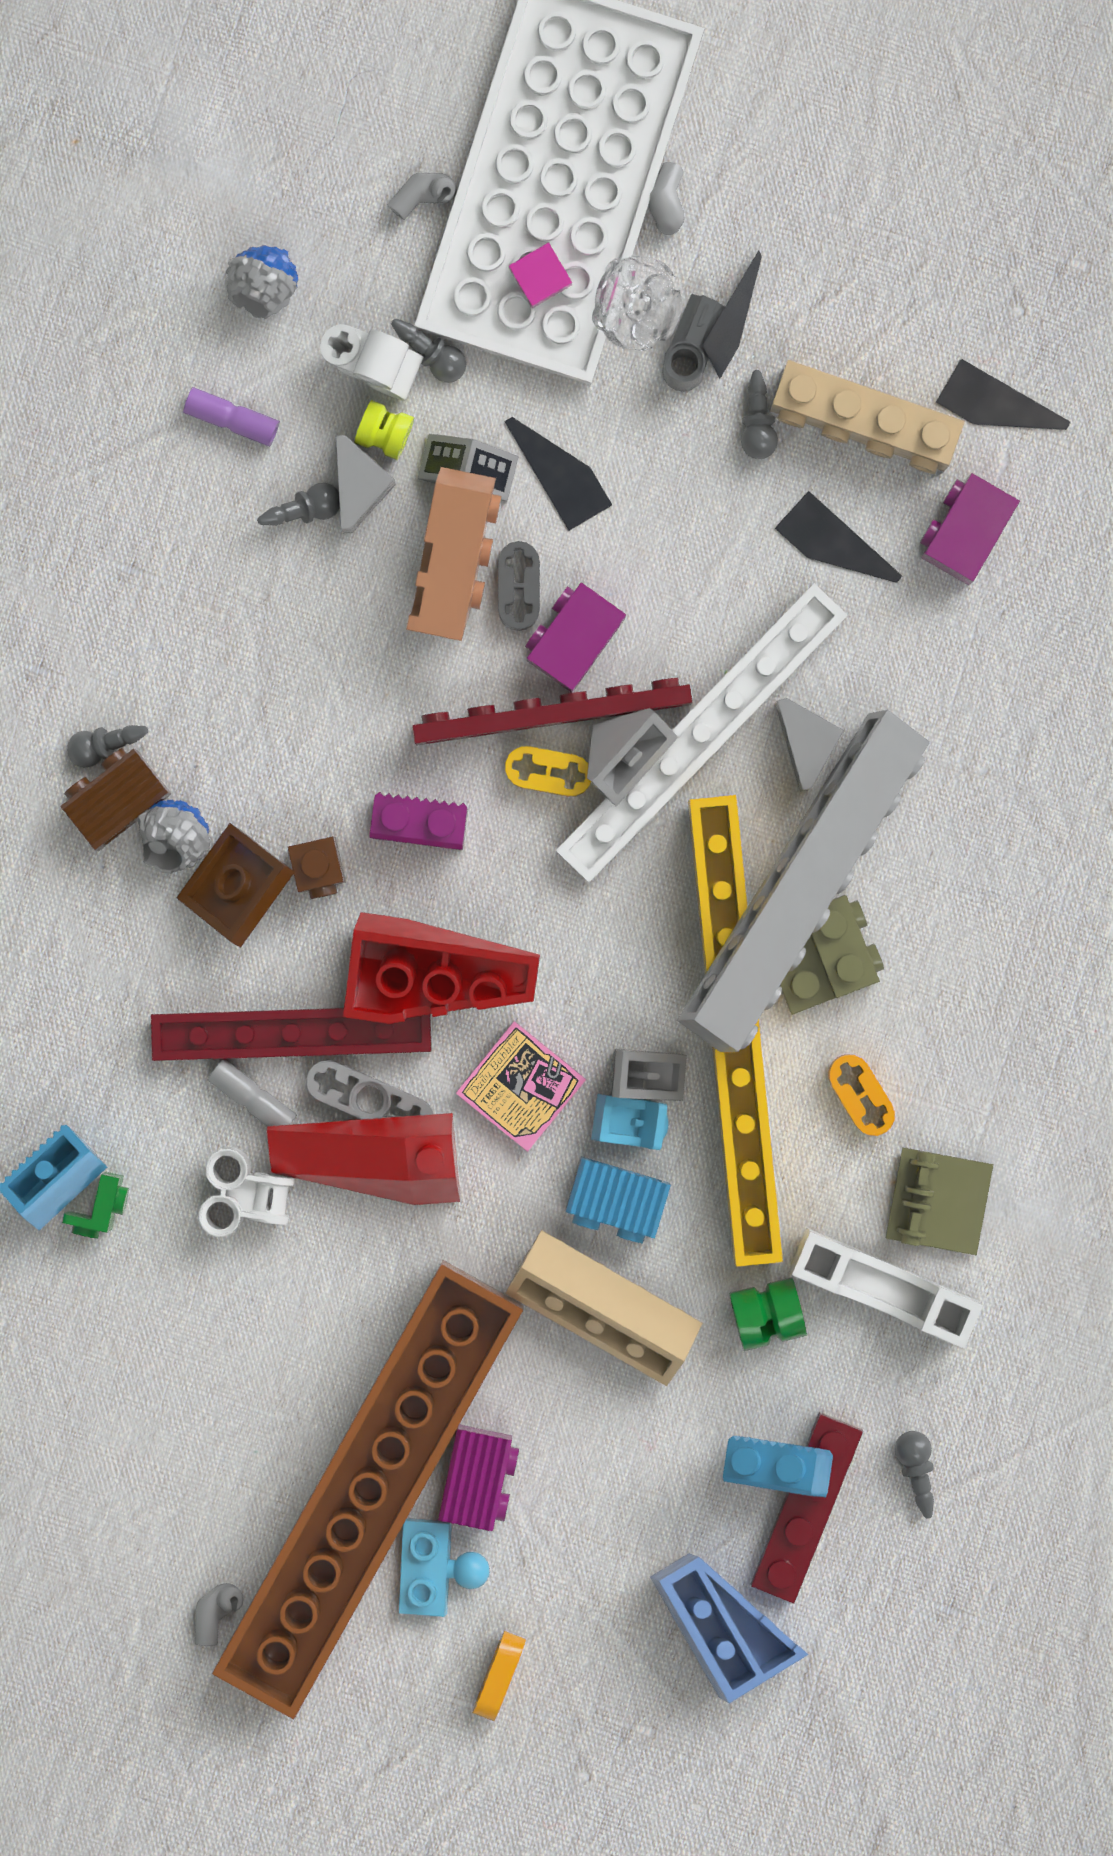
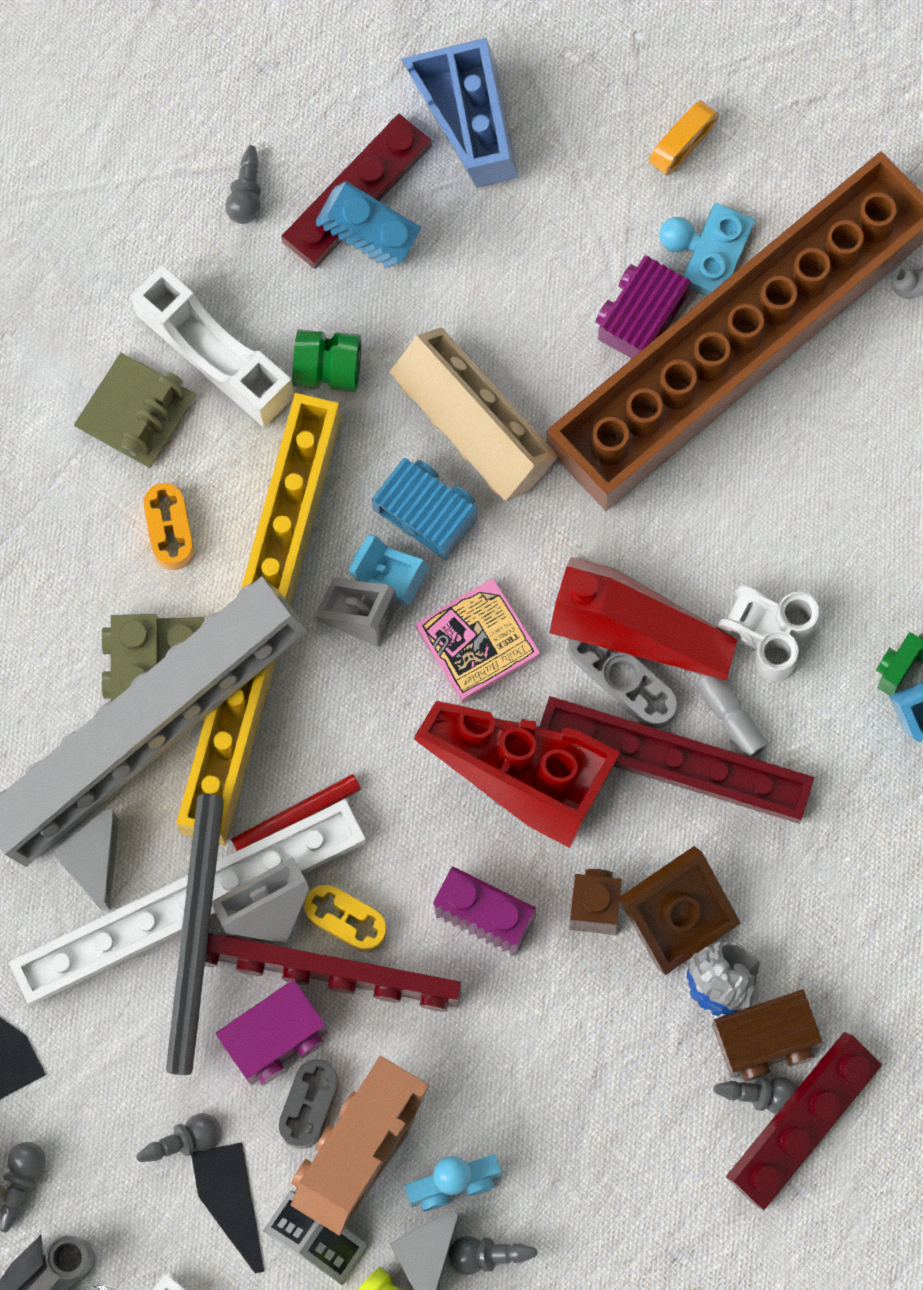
camera: 155 degrees left, 15 degrees down
(55, 731) = (803, 1121): none -> dark red plate
(356, 557) = (453, 1177): none -> medium azure plate
(611, 523) = (199, 1133): none -> dark grey bar
(632, 855) = (298, 812): none -> red bar
(679, 698) = (194, 934): none -> dark grey axle

